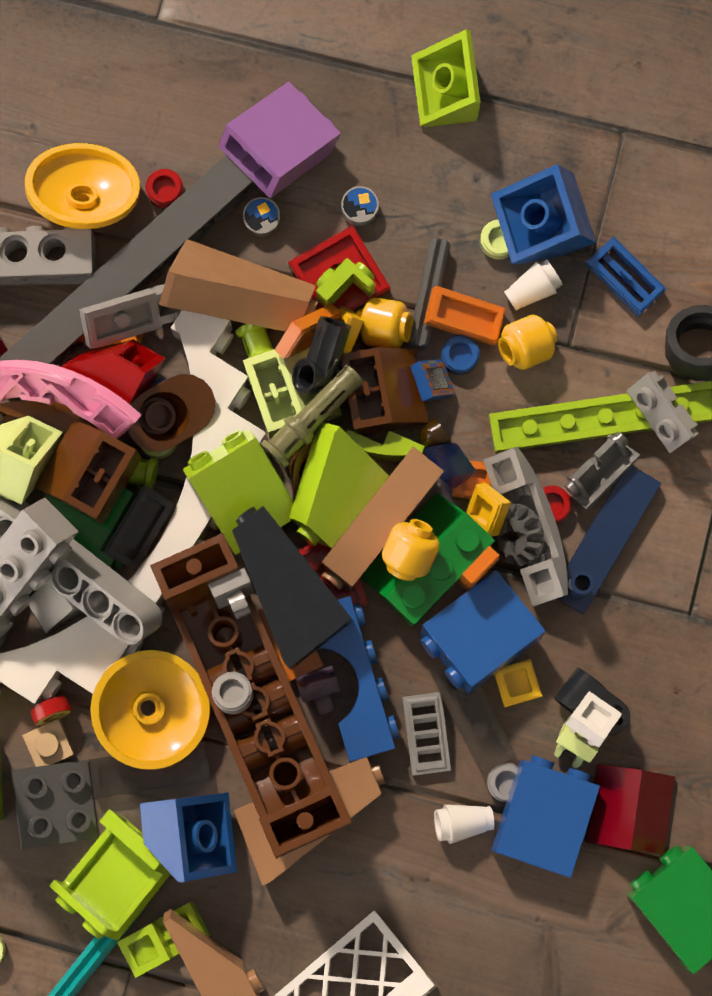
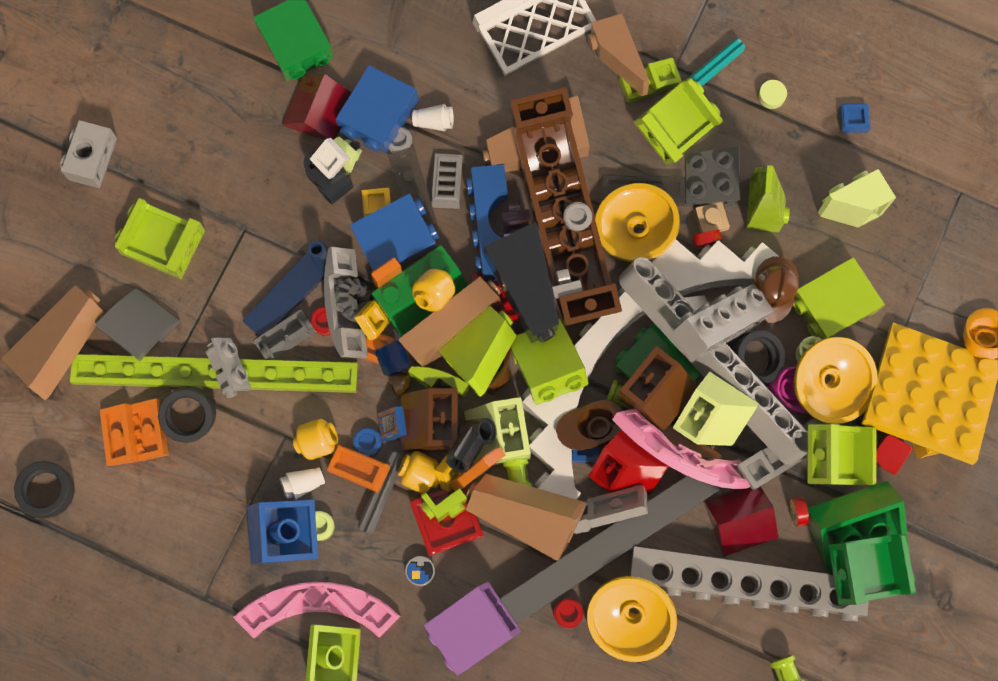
camera: 170 degrees left, 5 degrees down
(137, 527) = (627, 348): black tile -> none
(191, 835) = (621, 134): blue slope -> none
(261, 216) = (498, 575): tile -> none
(299, 428) = (498, 391): olive pin -> none
(483, 151) = (316, 597): none -> bright pink tile
(634, 305) = (243, 500): blue tile -> none

